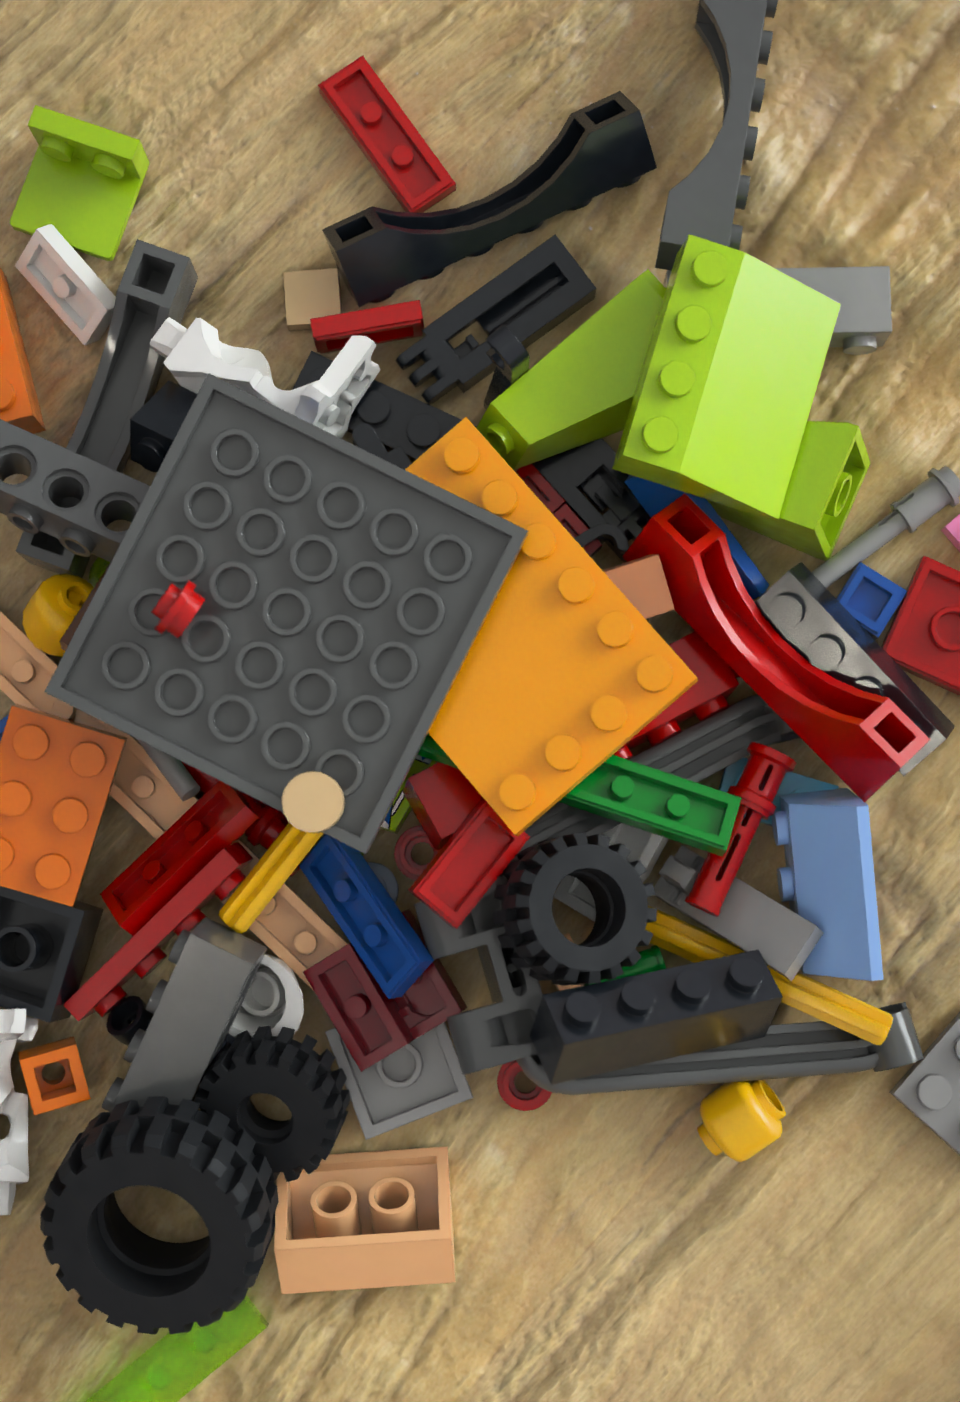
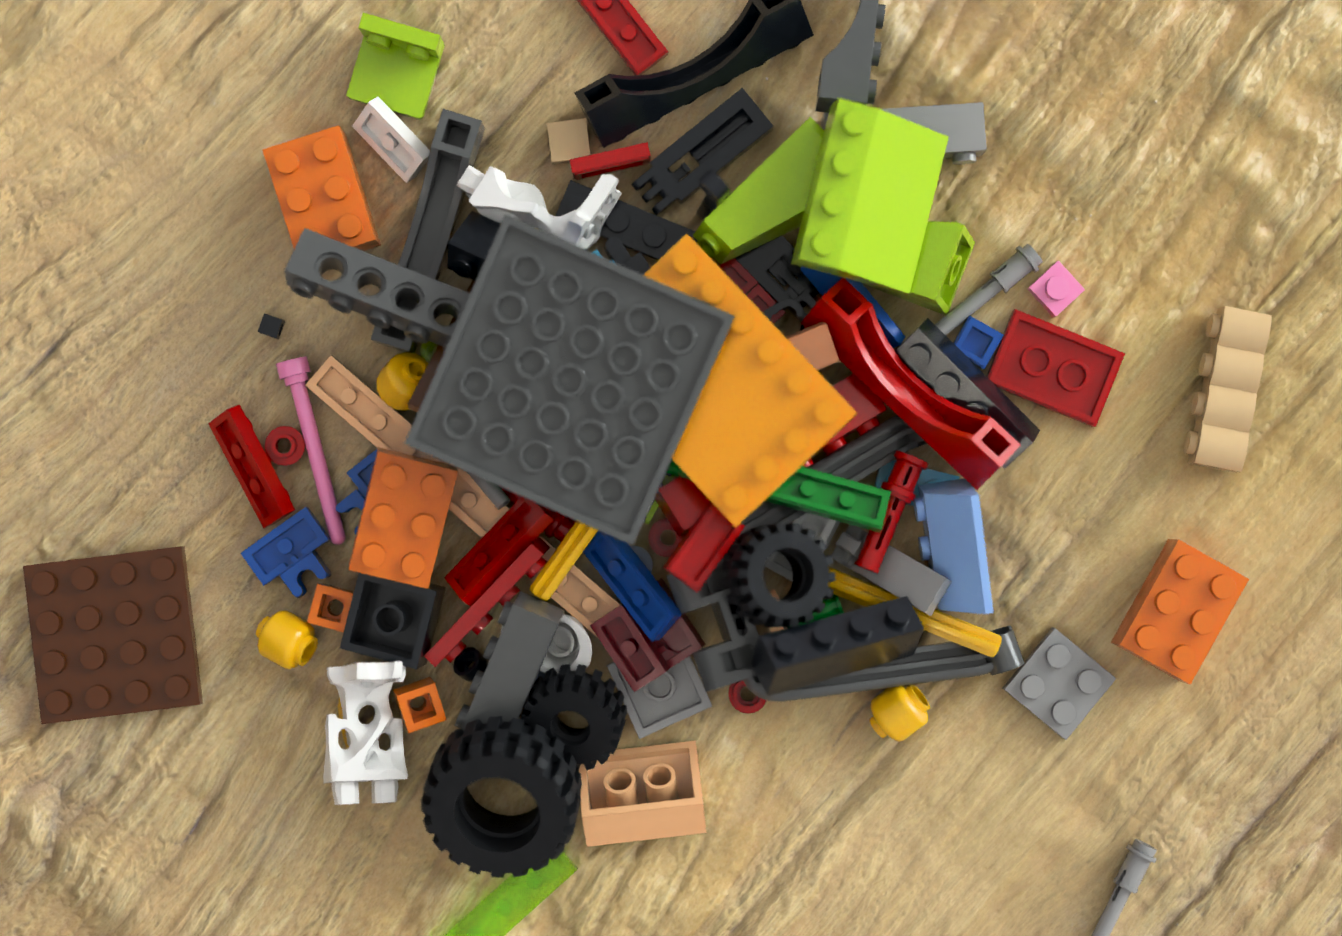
camera: 10 degrees left, 5 degrees up
(177, 608) = (494, 383): red plate -> none
(313, 802) = (595, 512): tan tile -> none

